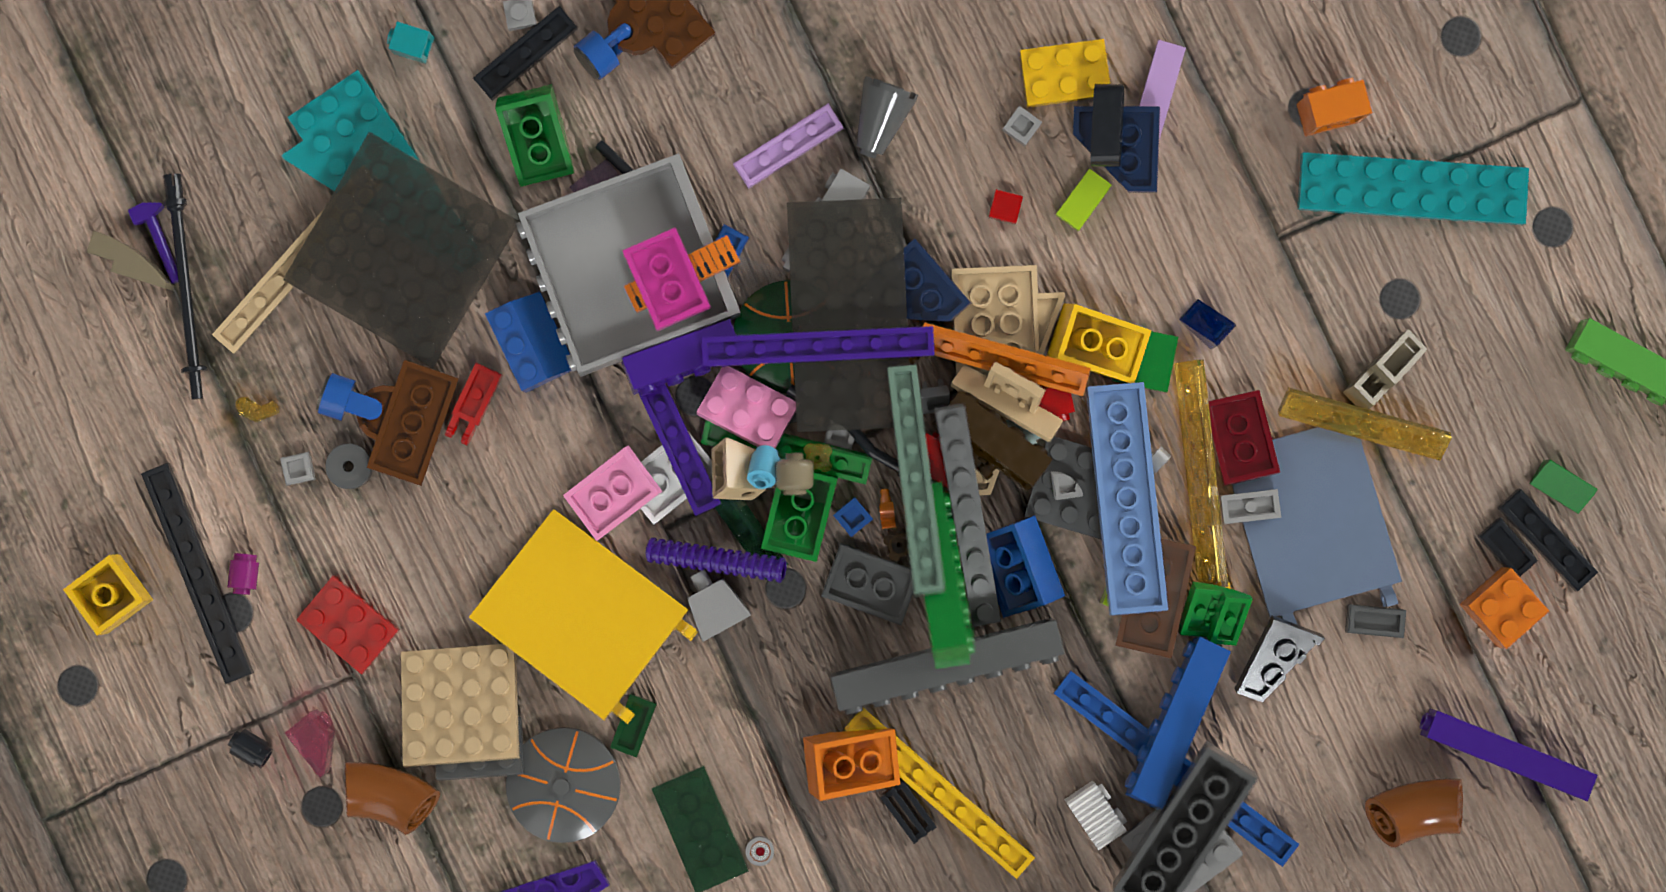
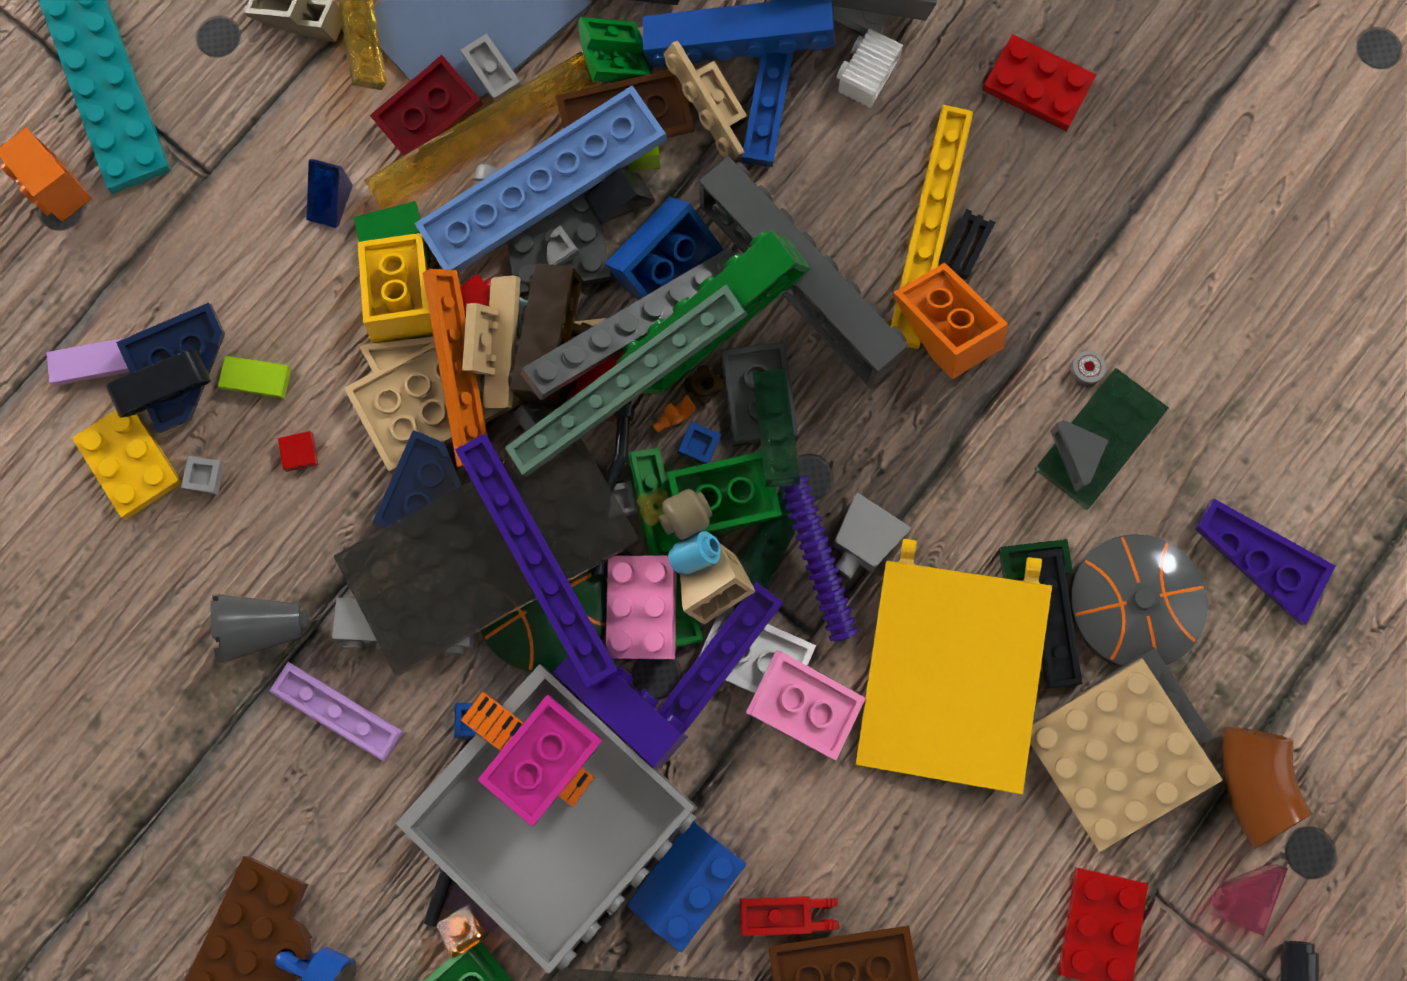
camera: 115 degrees left, 10 degrees down
(565, 708) = (1060, 649): none -> black tile
(581, 163) = (460, 931): none -> clear orange plate
(693, 801) = (1079, 452): none -> dark grey slope
(830, 578) = (776, 428): none -> clear green plate
(1086, 555) = (619, 195): none -> black slope
(1131, 672) = (711, 97): none -> tan bracket

